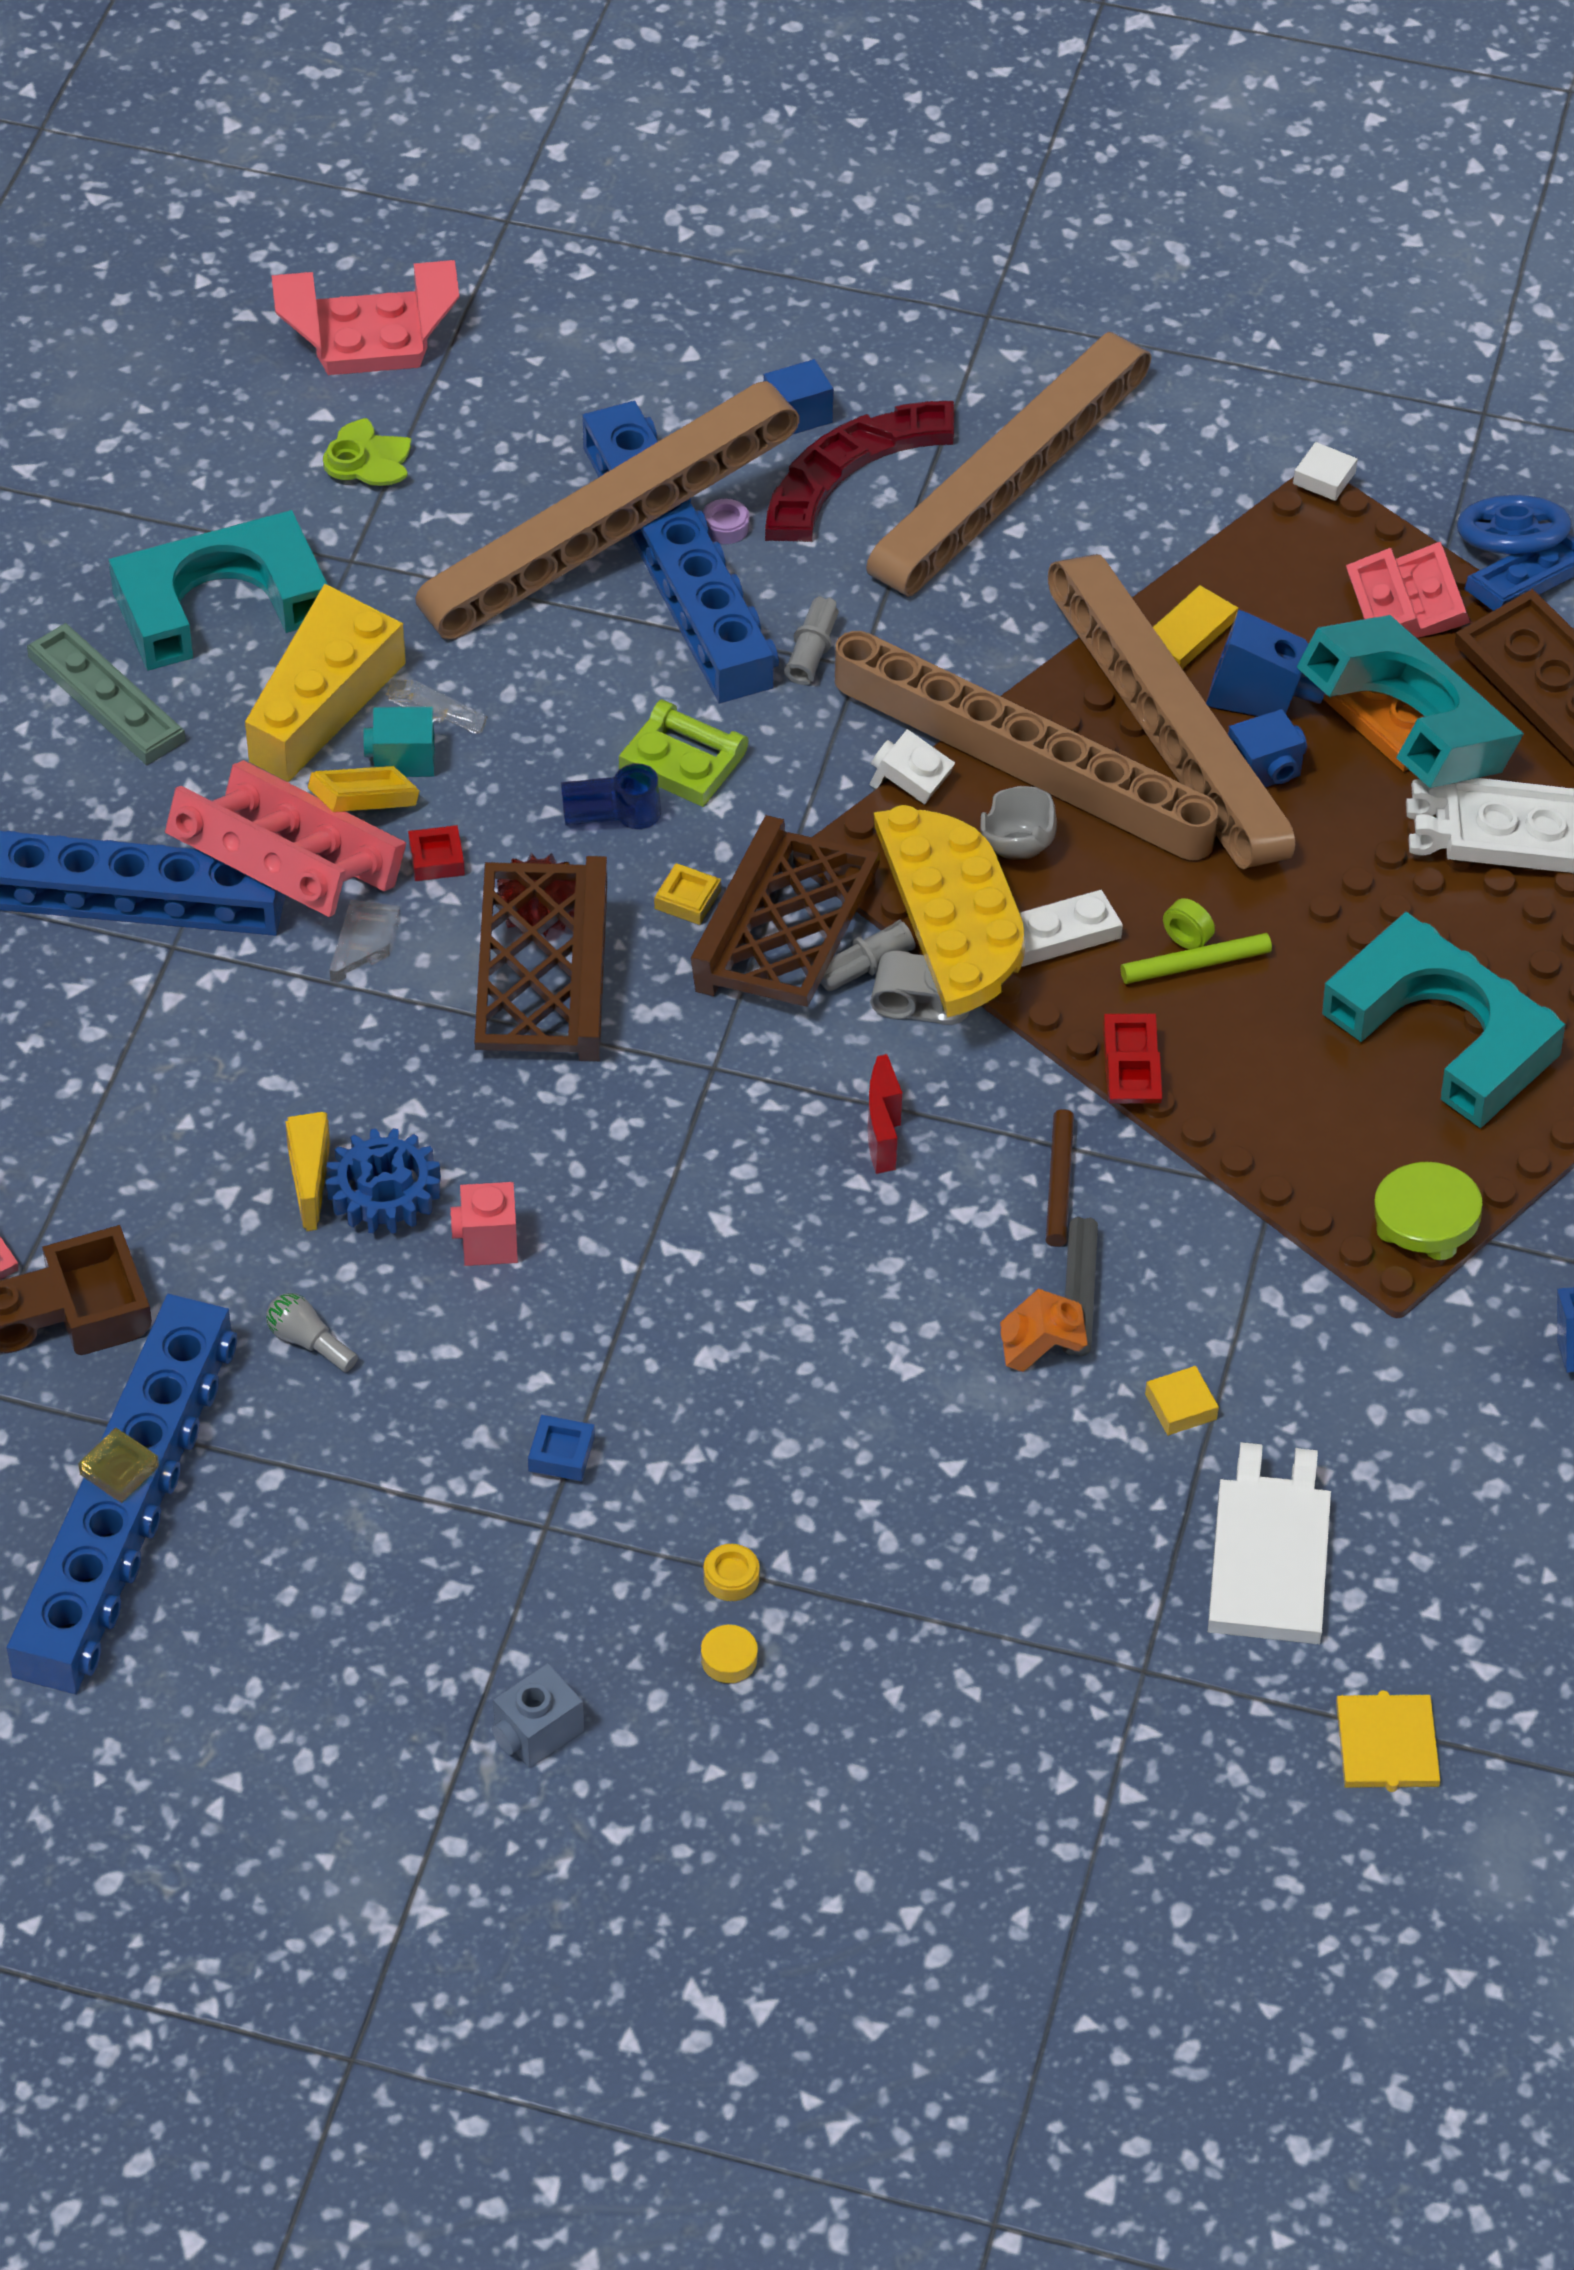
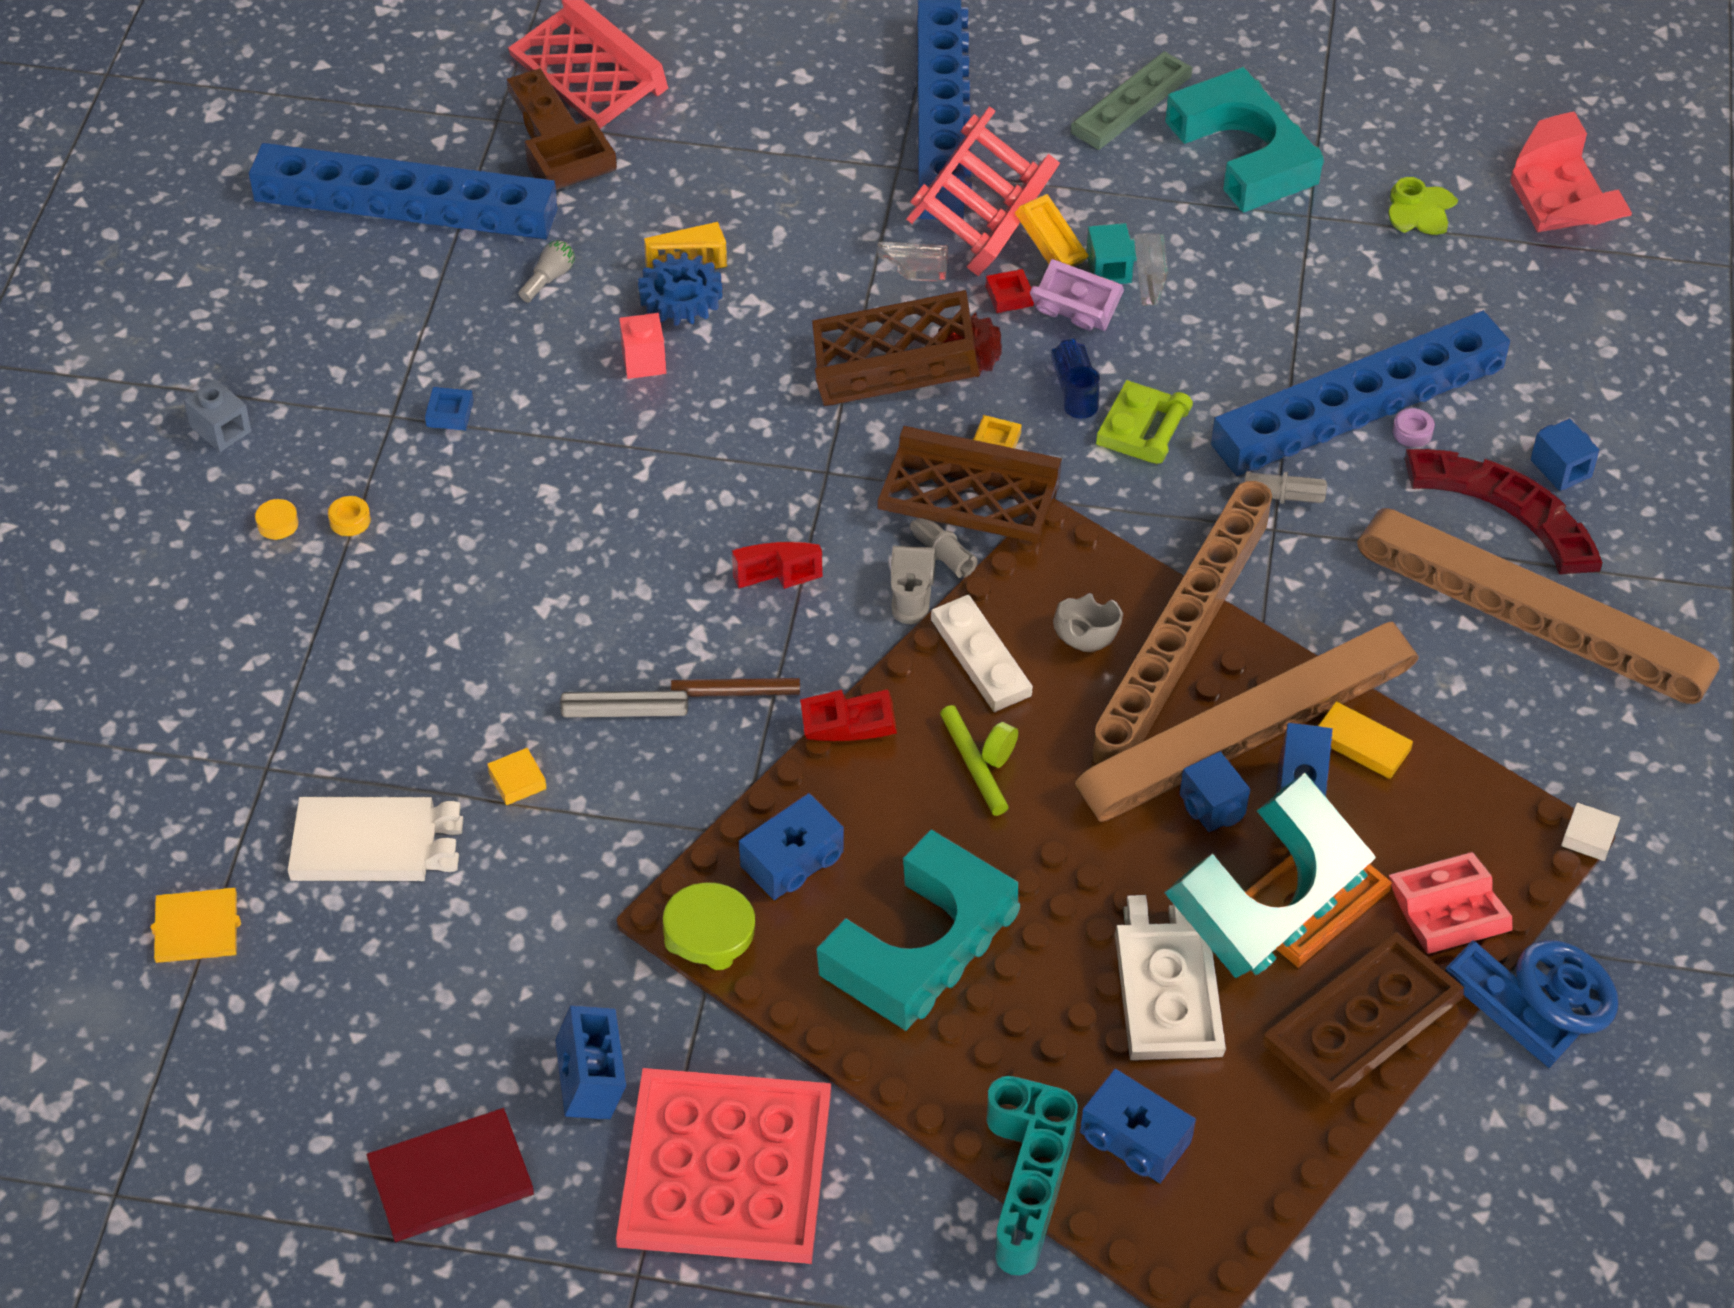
camera: 85 degrees right, 0 degrees up
(118, 1465) = (403, 171): clear yellow tile -> none
(322, 681) = (1156, 198): yellow wedge -> none
(469, 780) = (1077, 295): none -> lavender bracket
(606, 510) = (1372, 330): medium nougat beam -> none
(911, 766) = (1148, 556): white bracket -> none
(954, 903) = (982, 581): yellow plate -> none
(1039, 1325) = (567, 674): orange bracket -> none
(1323, 1123) = (792, 847): none -> blue brick

